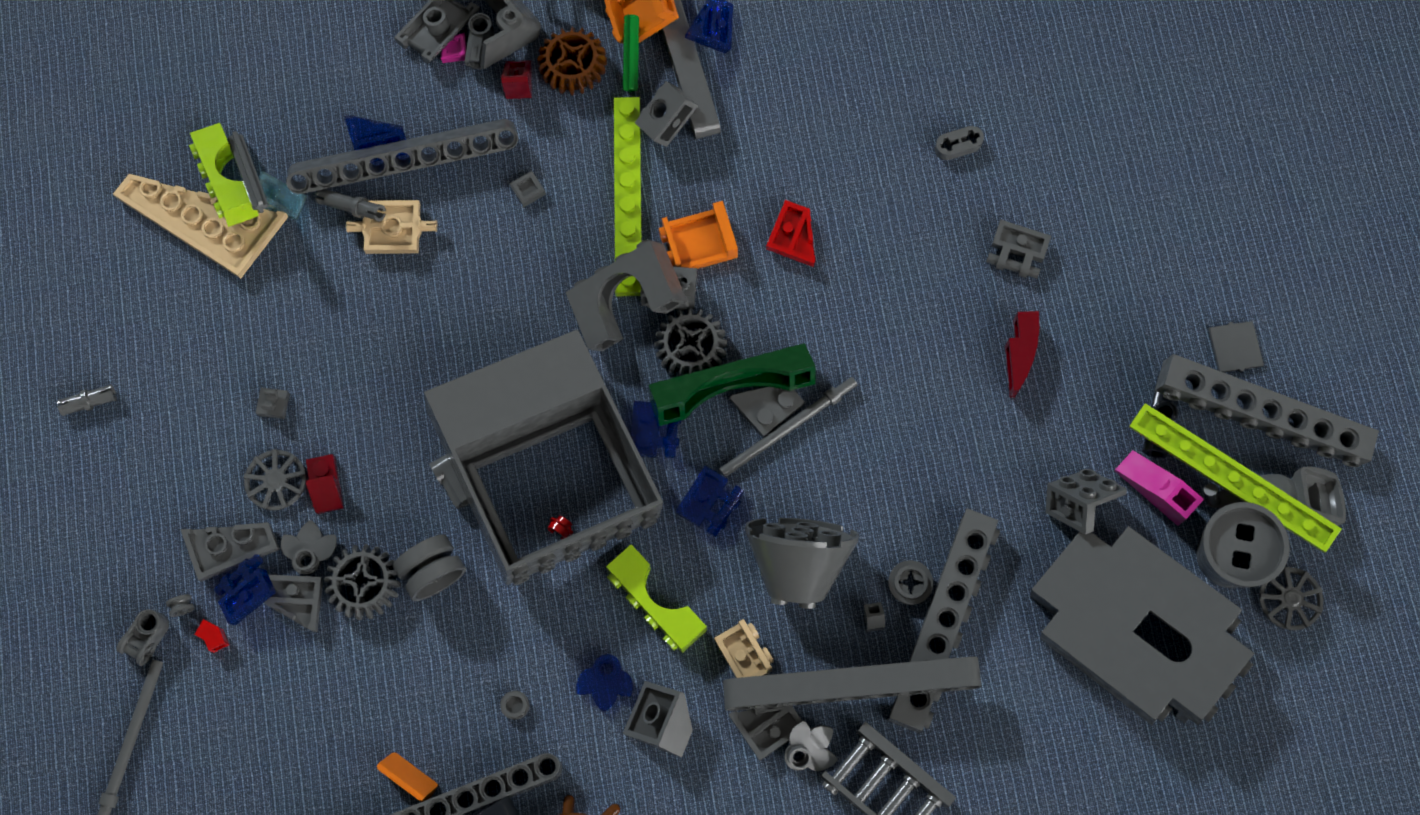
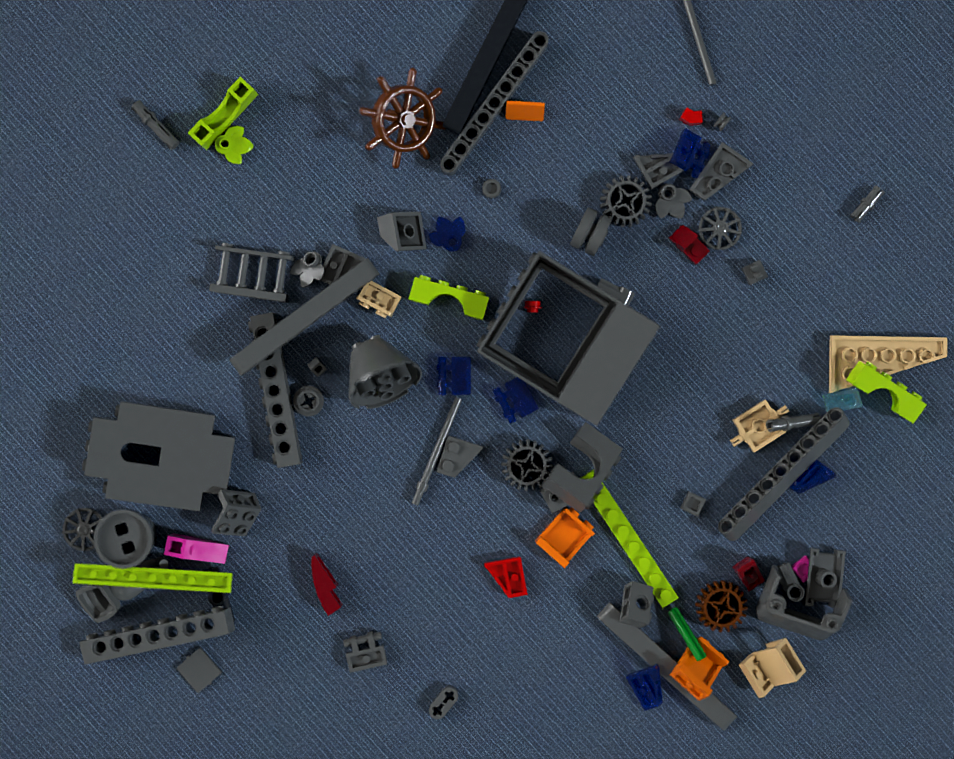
camera: 150 degrees right, 15 degrees up
(143, 638) = (730, 88): dark grey piece -> none
(248, 172) = (871, 401): dark grey axle -> none
(783, 369) = (460, 483): dark green arch -> none

